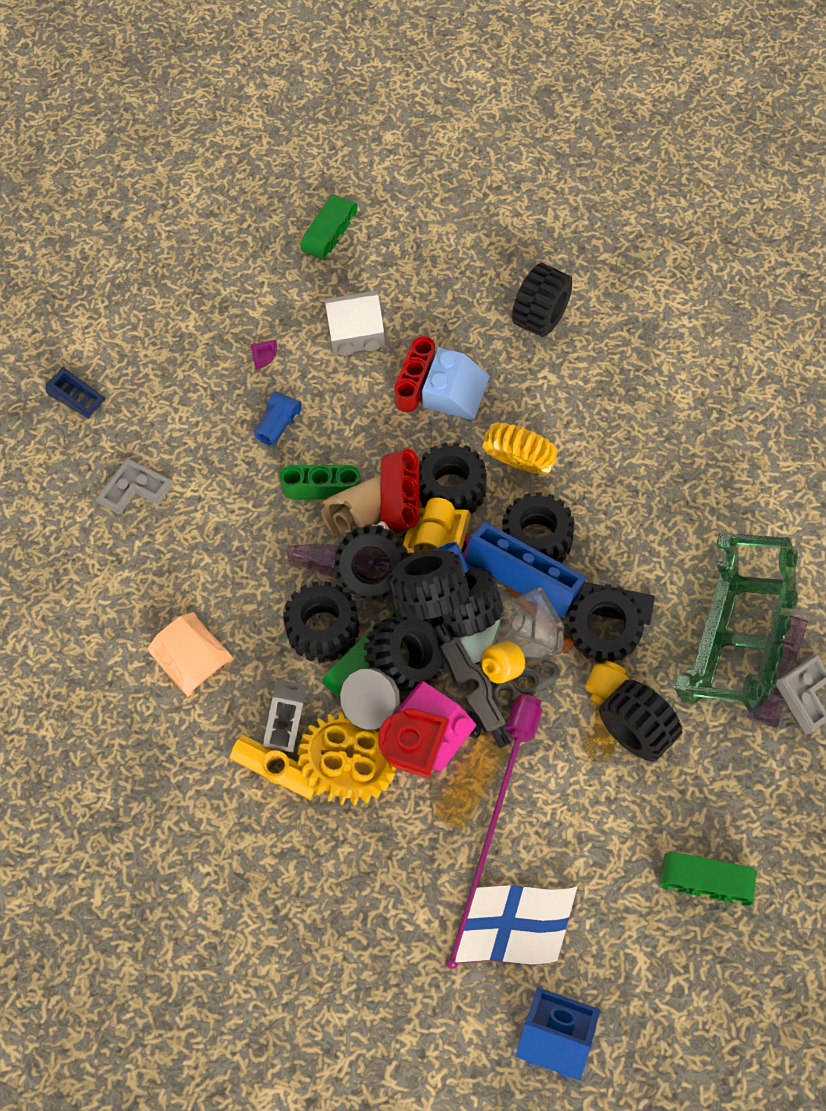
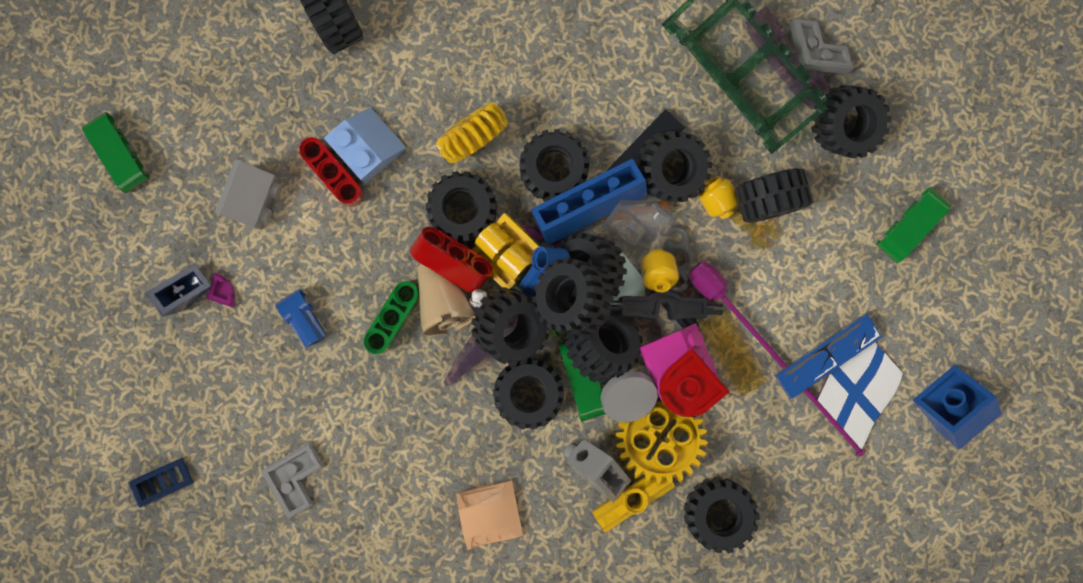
camera: 65 degrees left, 25 degrees up
(243, 320) = (178, 291): none -> dark blue slope
(312, 879) = (738, 531): none -> black tyre
(525, 869) = (828, 356): none -> blue tile
(788, 752) = (870, 124): none -> black tyre

